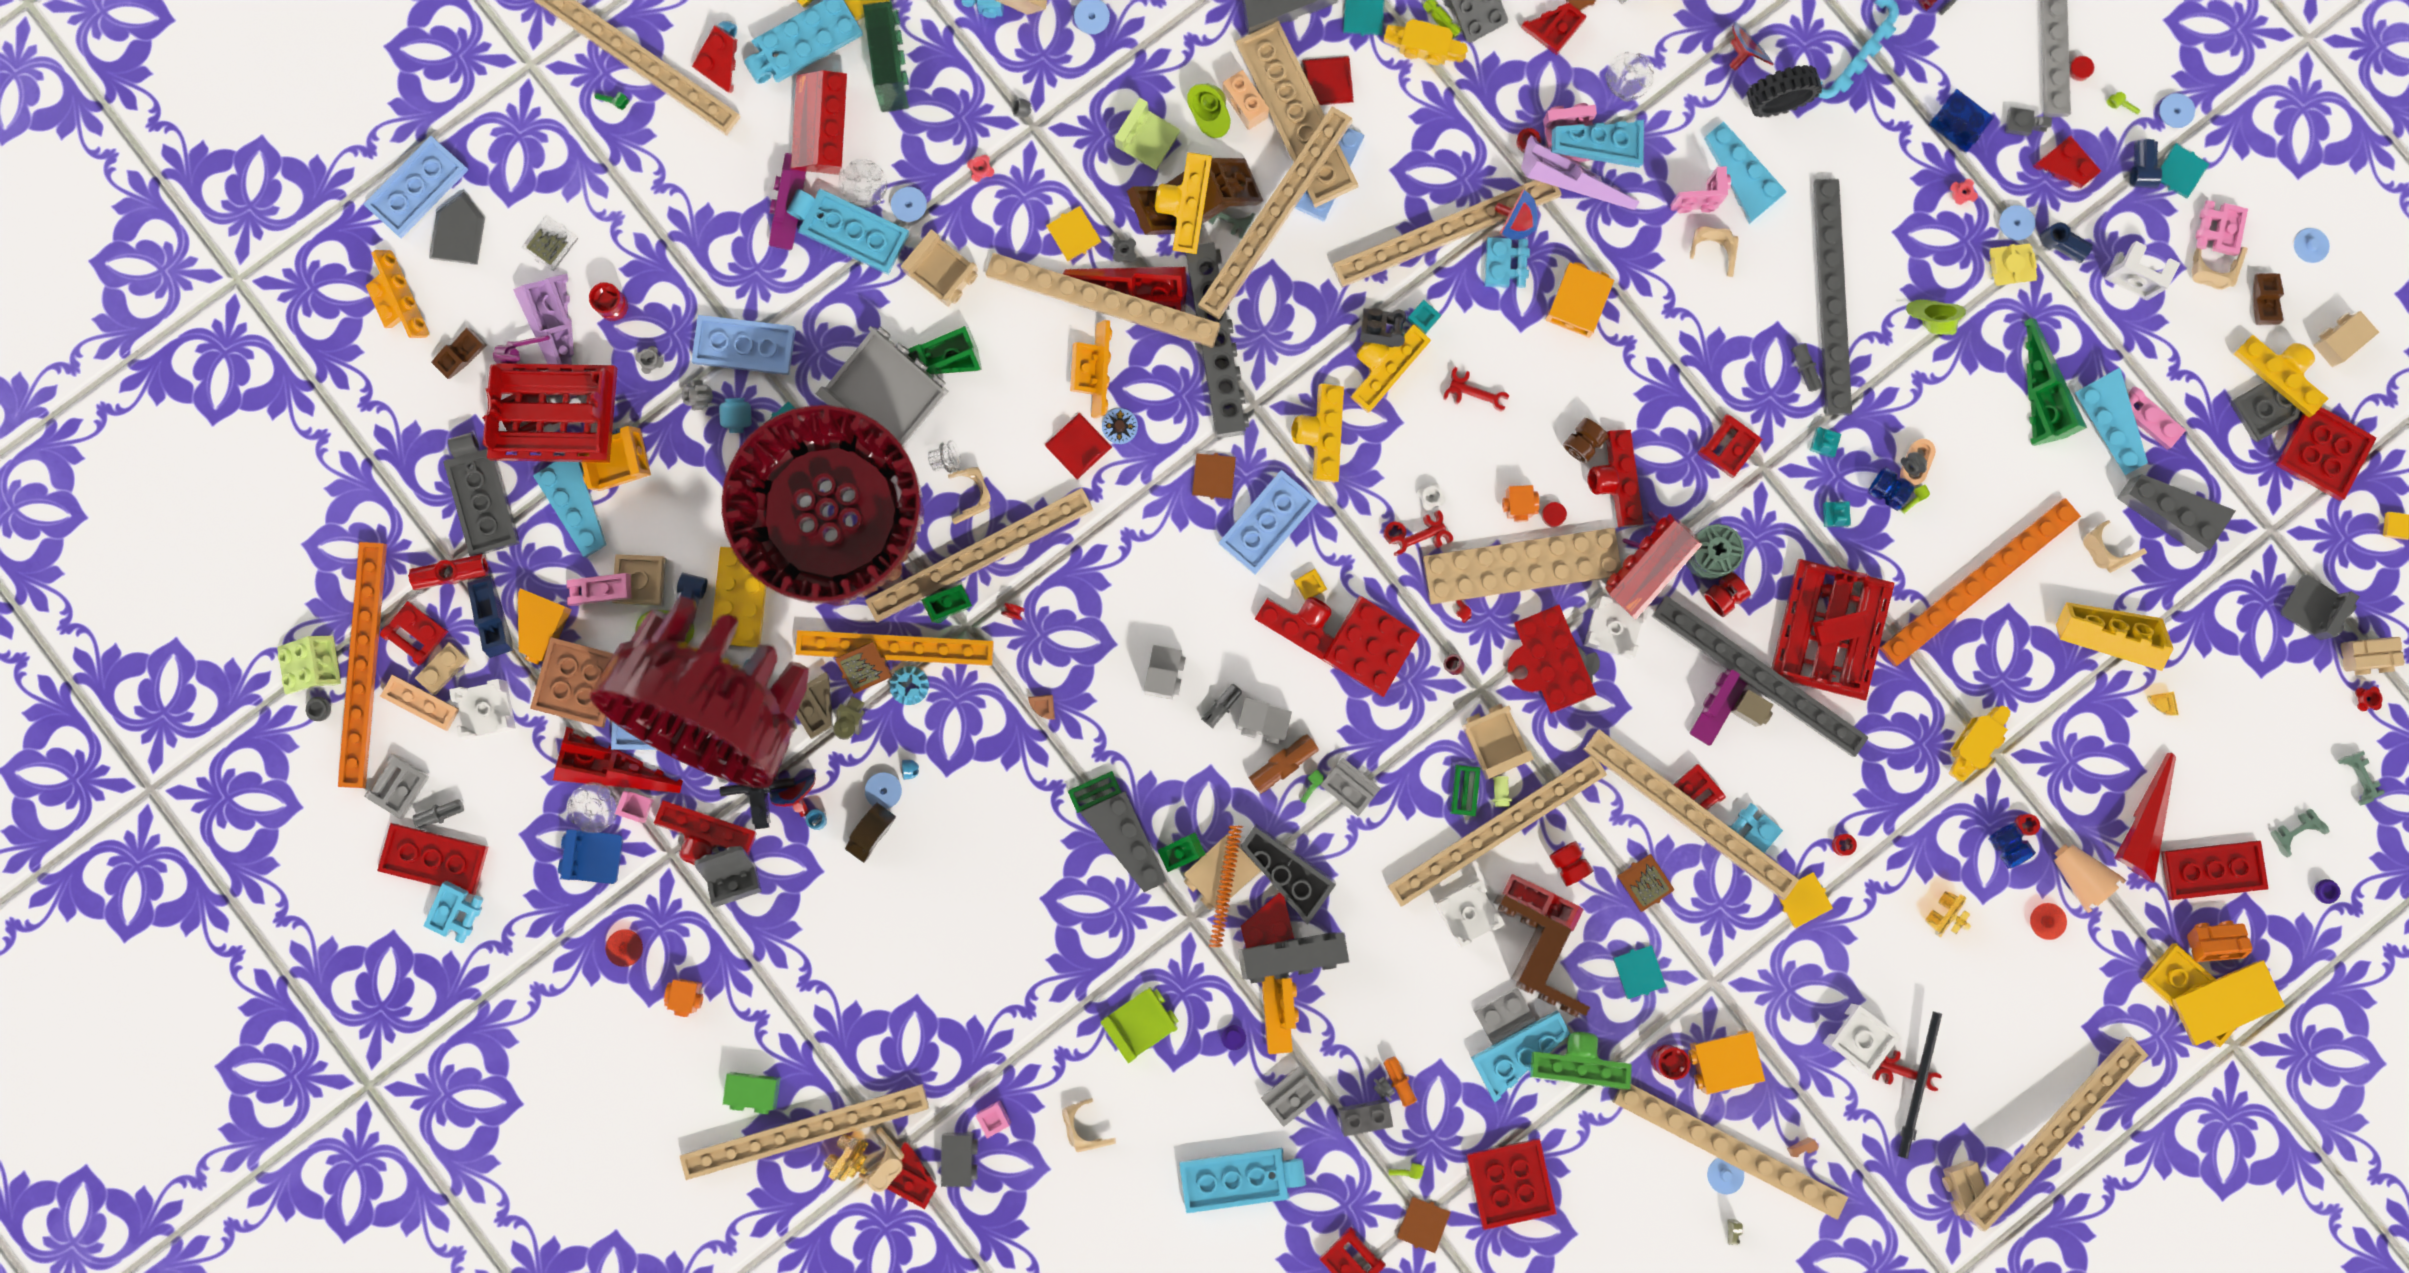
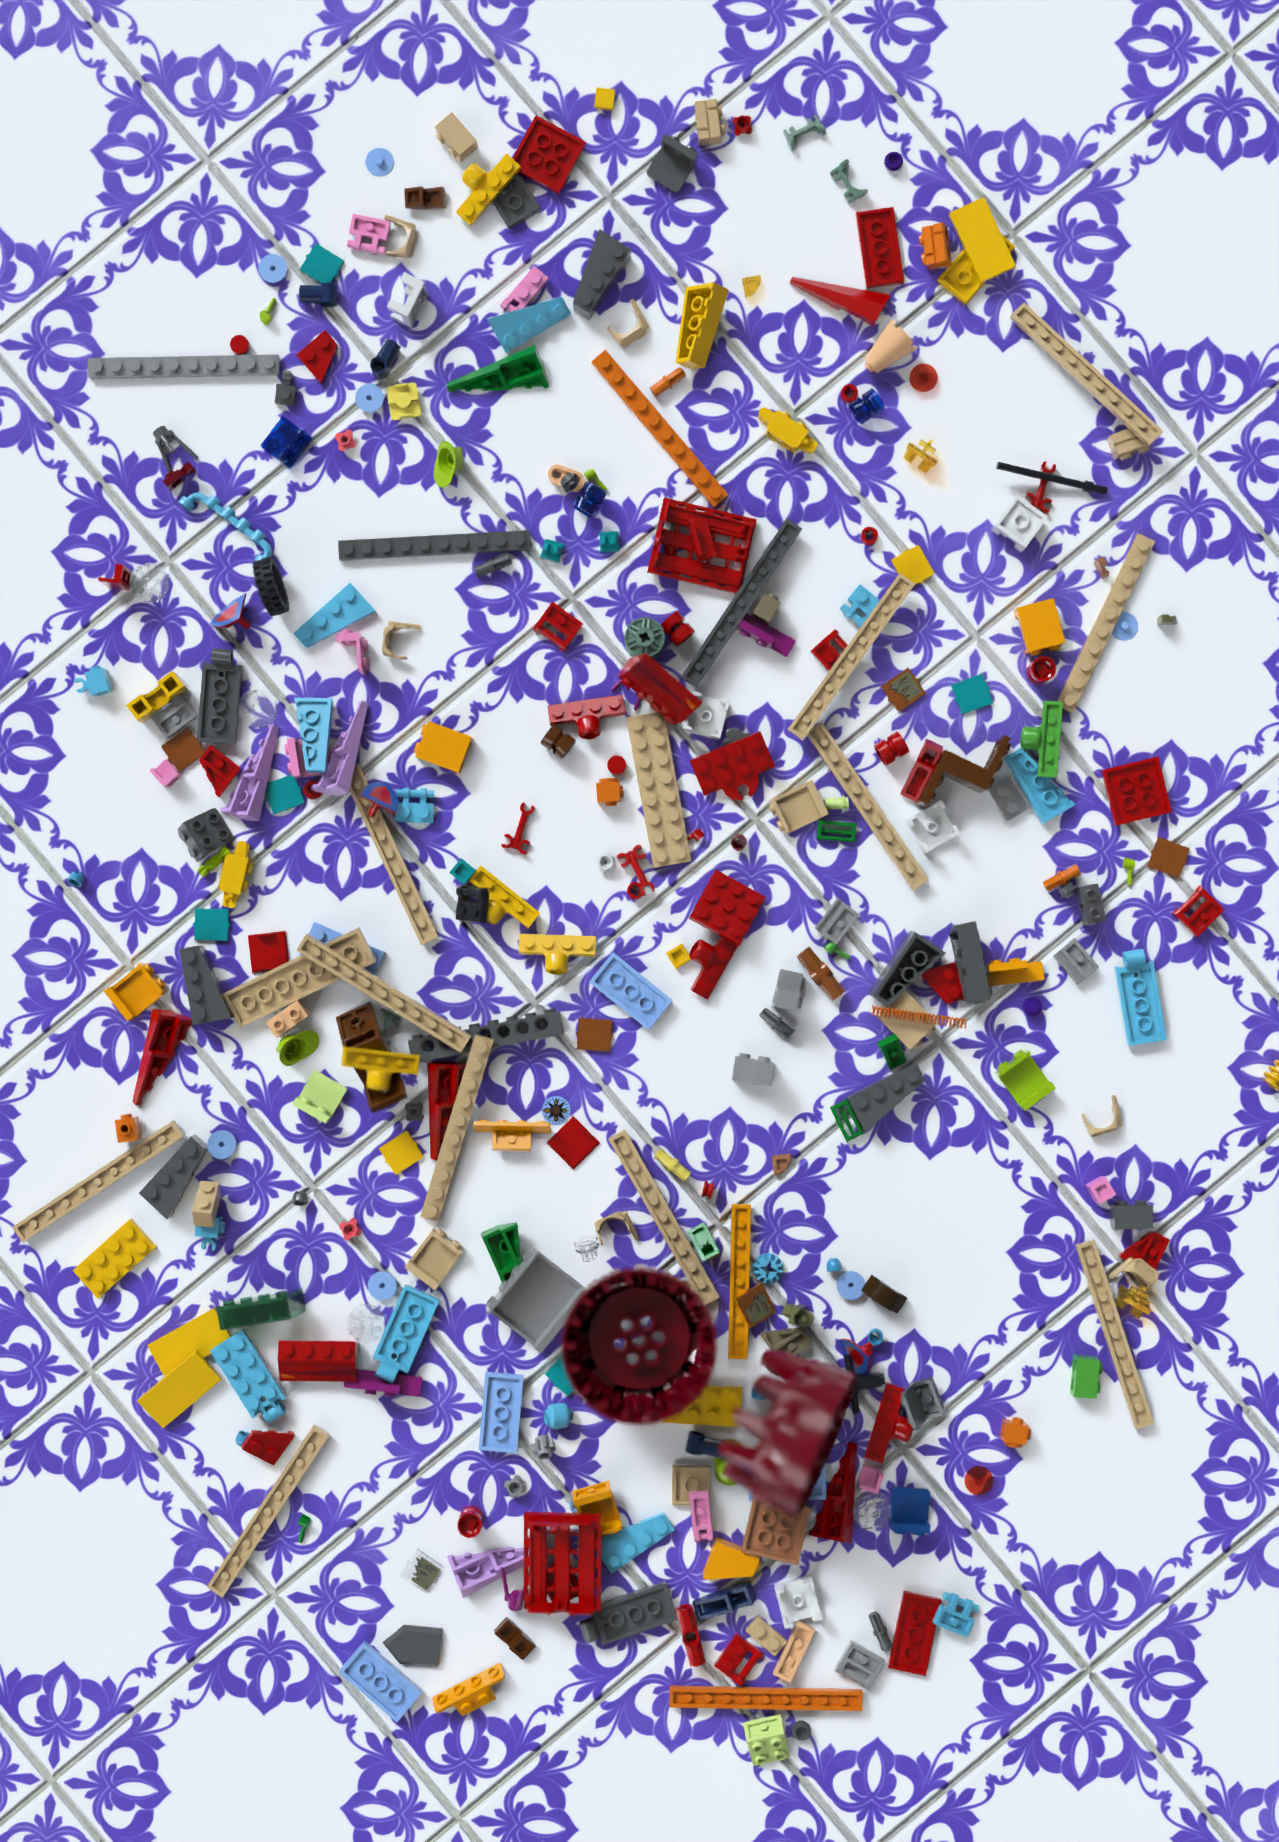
camera: 85 degrees left, 5 degrees up
(1046, 567) = (672, 1164): none -> light yellow pin
(1523, 104) = (284, 794): none -> teal piece
(1529, 64) = (249, 795): none -> lavender wedge
(1643, 30) = (219, 699): none -> dark grey hinge
(2040, 593) = (667, 382): none -> orange axle

